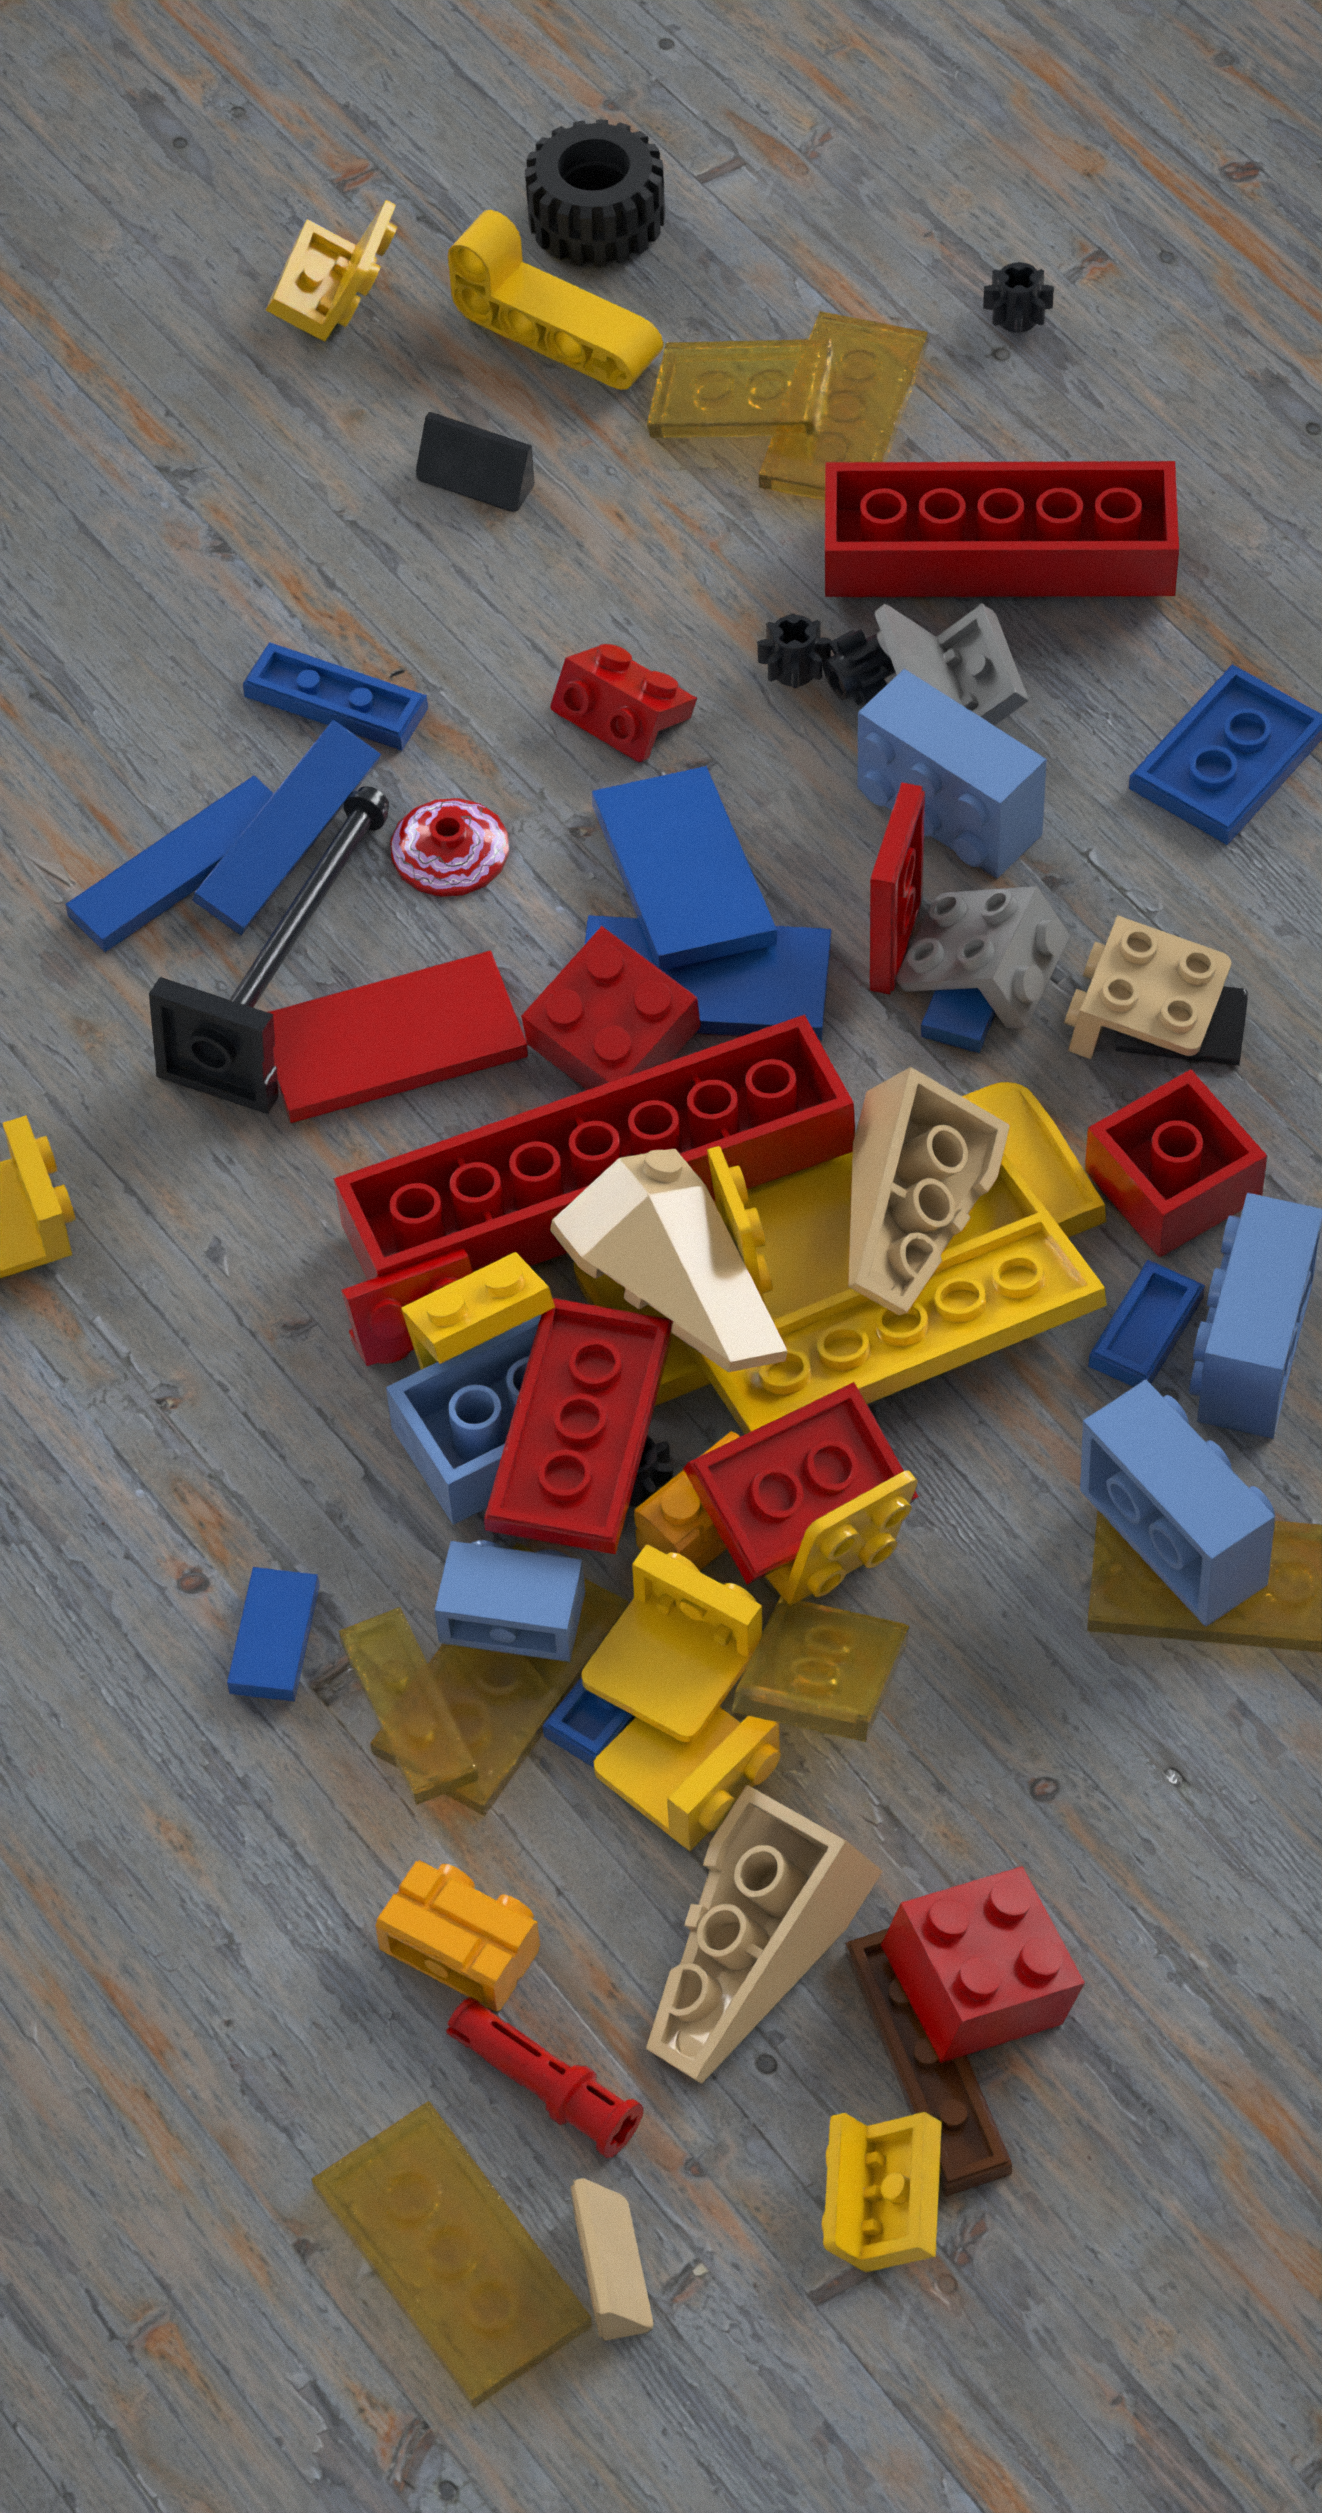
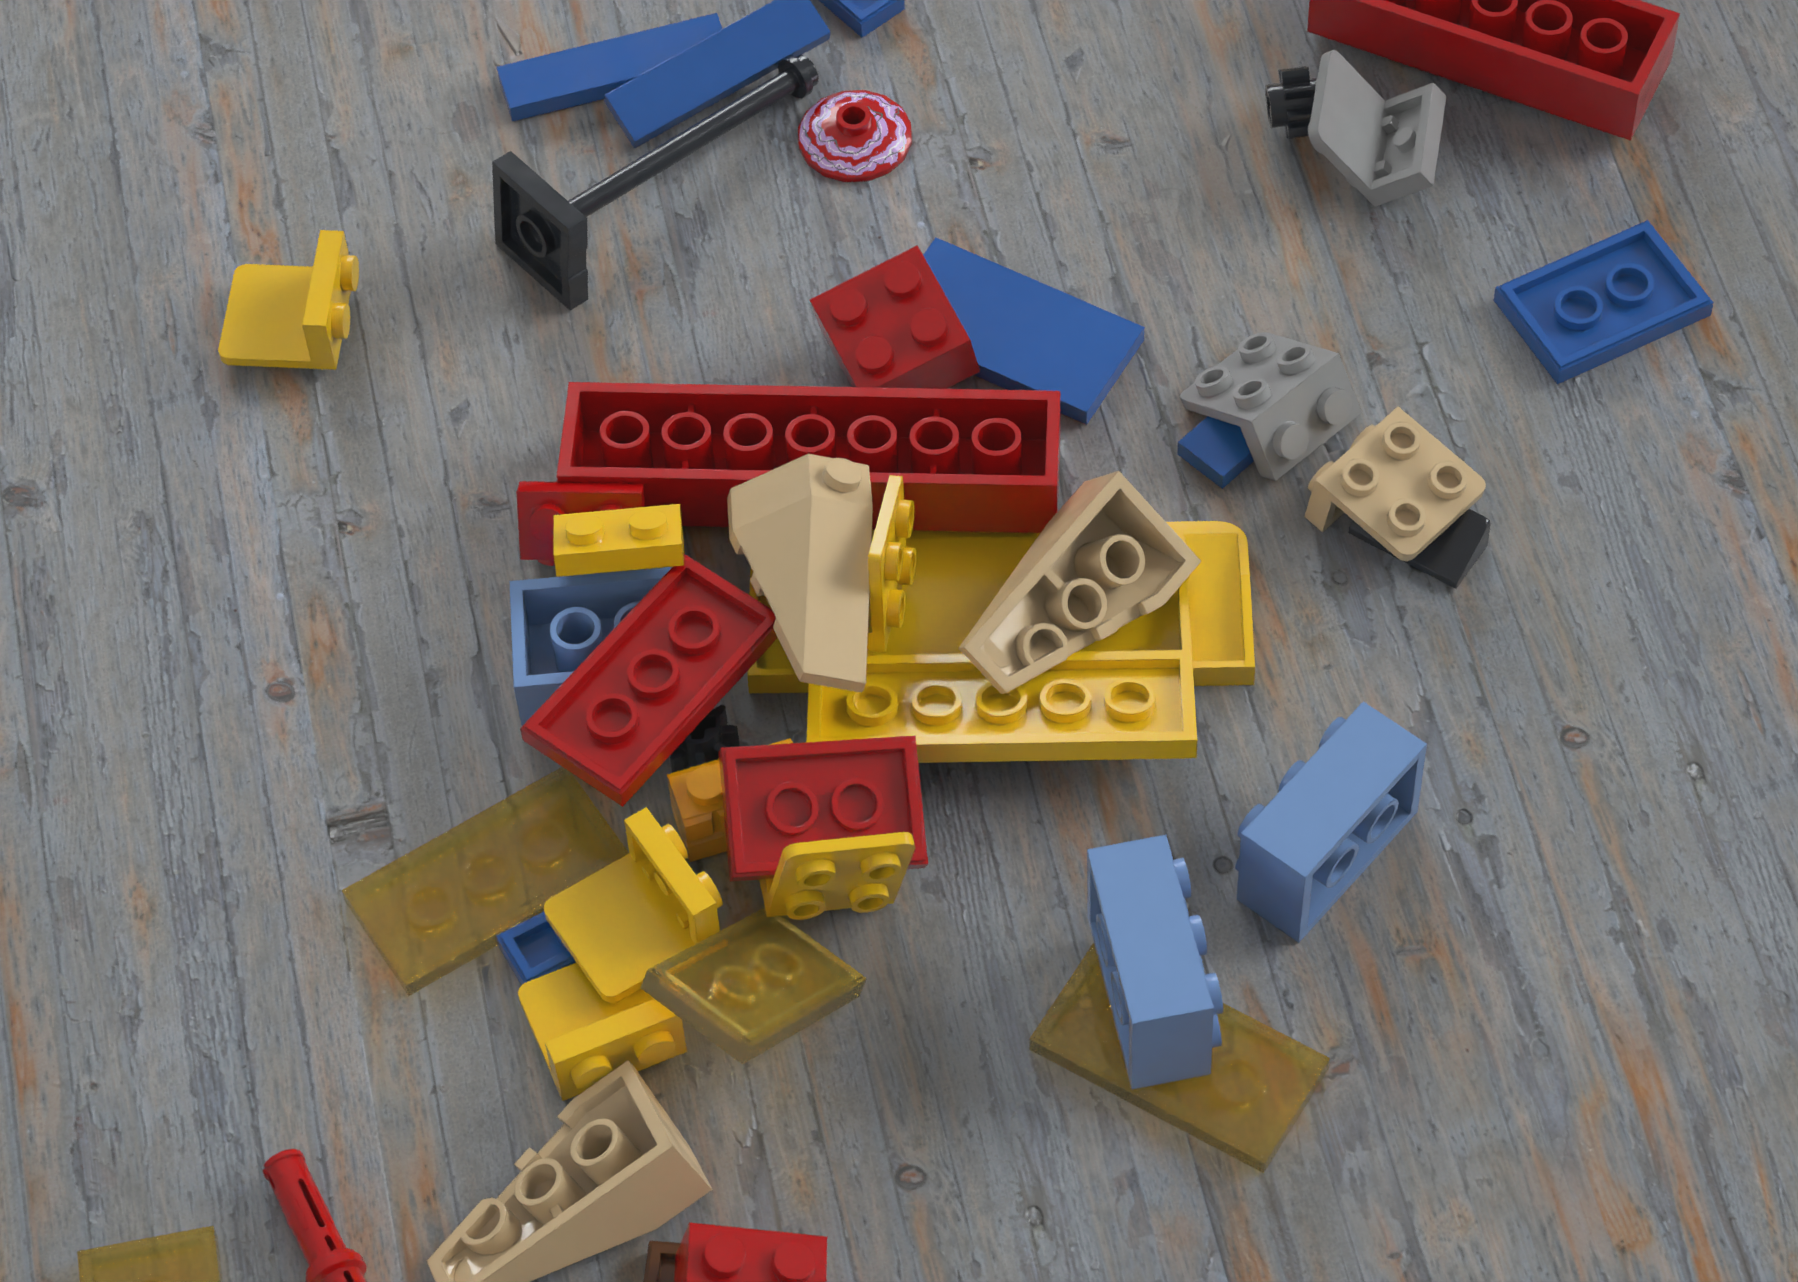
camera: 25 degrees right, 0 degrees up
(273, 1634) = (317, 762): blue tile -> none
(394, 1036) = (708, 281): red tile -> none
(408, 1705) = (387, 870): clear yellow tile -> none
(459, 1933) = (318, 1089): light orange brick -> none
(510, 1600) = (519, 811): medium blue brick -> none
(619, 699) = (1071, 57): red bracket -> none
(683, 868) = (1041, 226): blue tile -> none
(794, 650) = (1247, 67): black gear -> none
(896, 888) = (1203, 306): red tile -> none
(976, 779) = (1319, 225): medium blue brick -> none
(1146, 1325) = (1220, 798): blue tile -> none
(1174, 1162) = (1332, 649): red brick -> none

